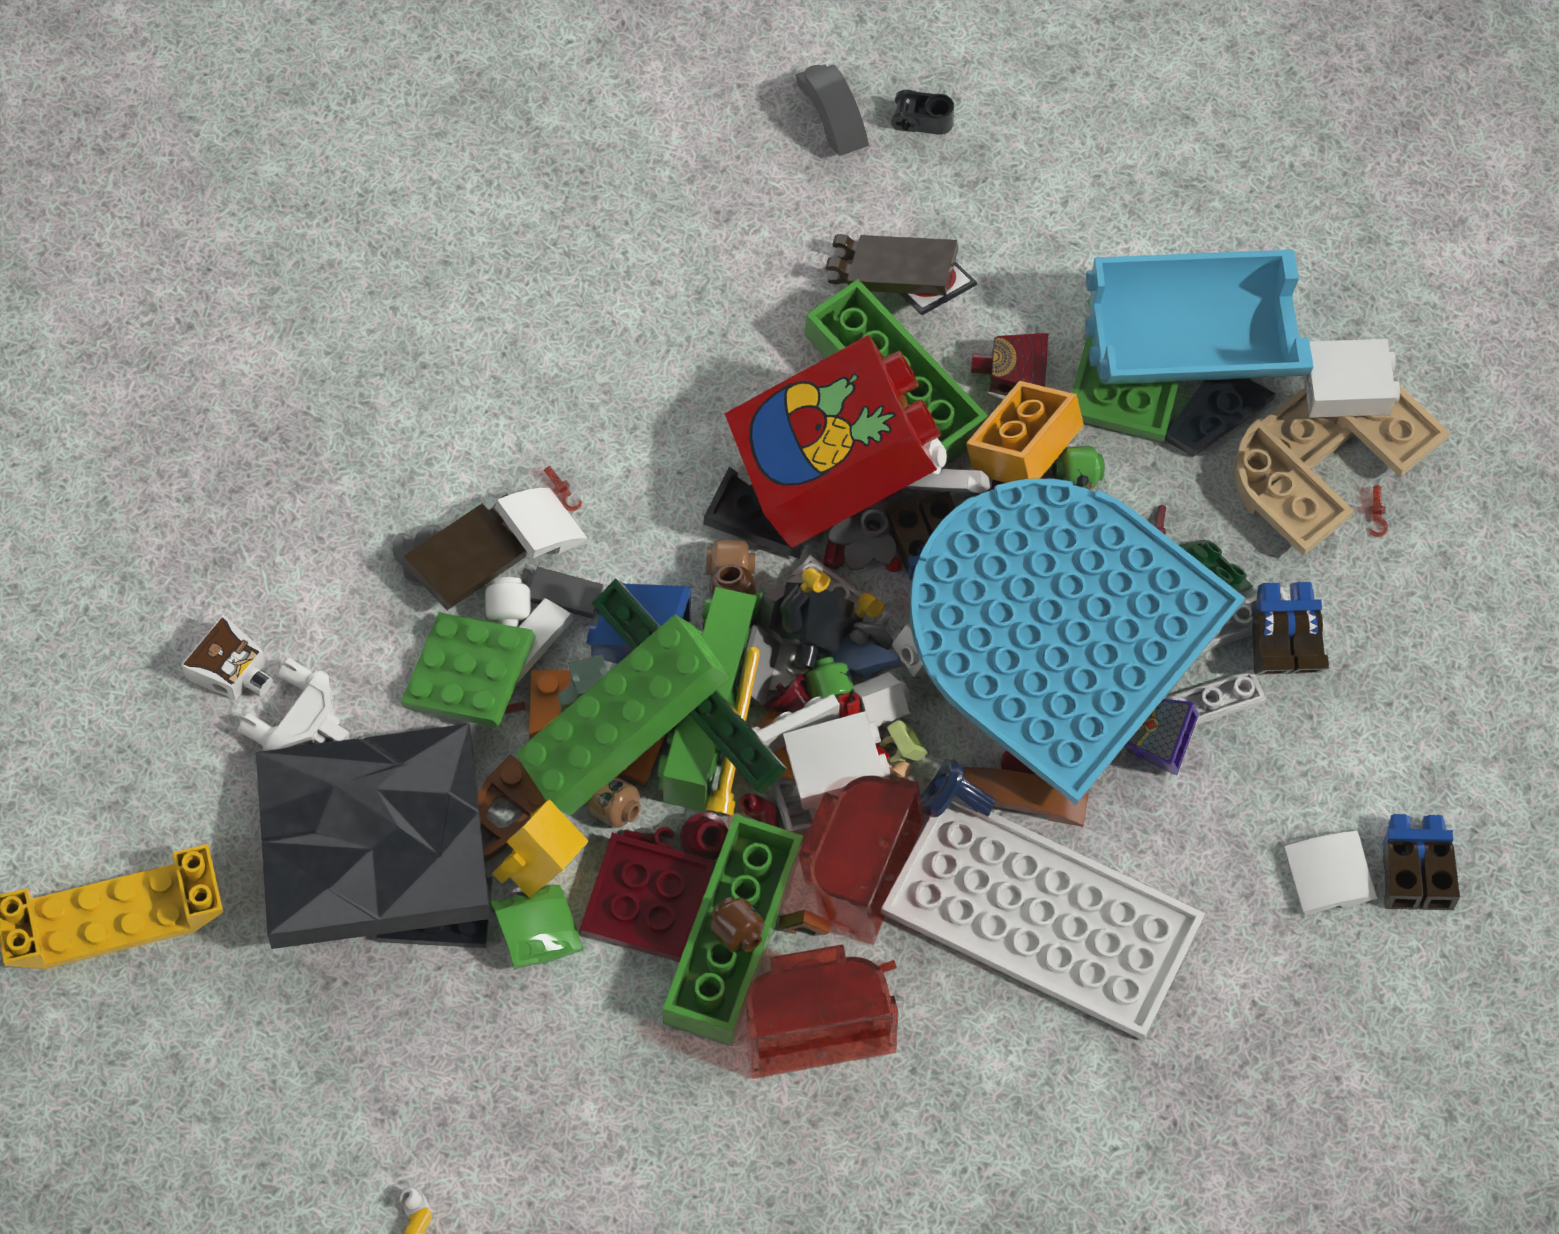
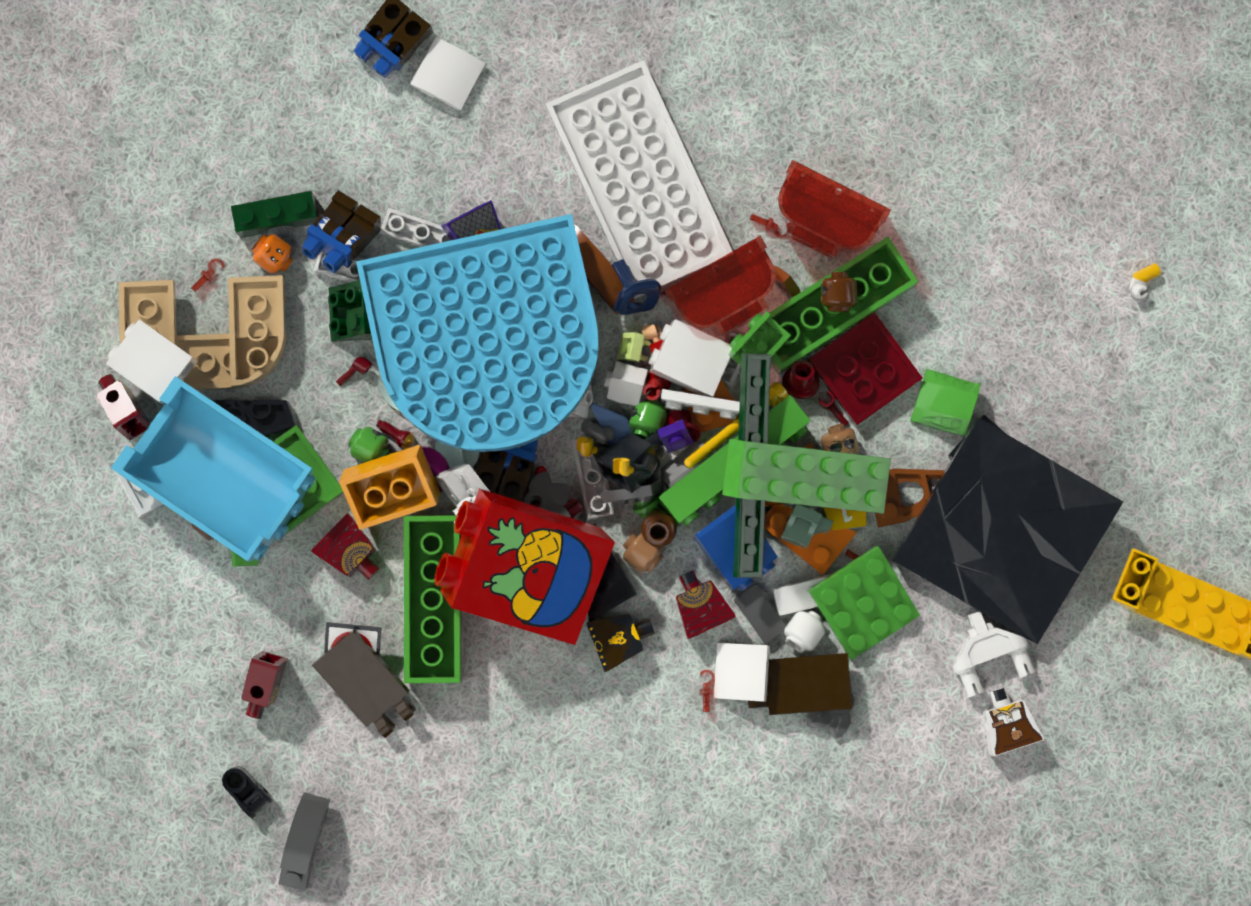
camera: 140 degrees left, 20 degrees up
(540, 849) = (914, 437): yellow plate -> none
(629, 552) = (701, 606): none -> torso
(688, 468) = (618, 638): none -> torso
(777, 815) = (763, 338): none -> bright green bracket
(787, 674) = (675, 436): none -> dark purple plate
(985, 191) = (267, 672): none -> dark red torso
(1335, 570) = (272, 253): none -> orange head
(1336, 321) = (122, 408): none -> torso
(1364, 606) = (287, 210): none -> dark green arch

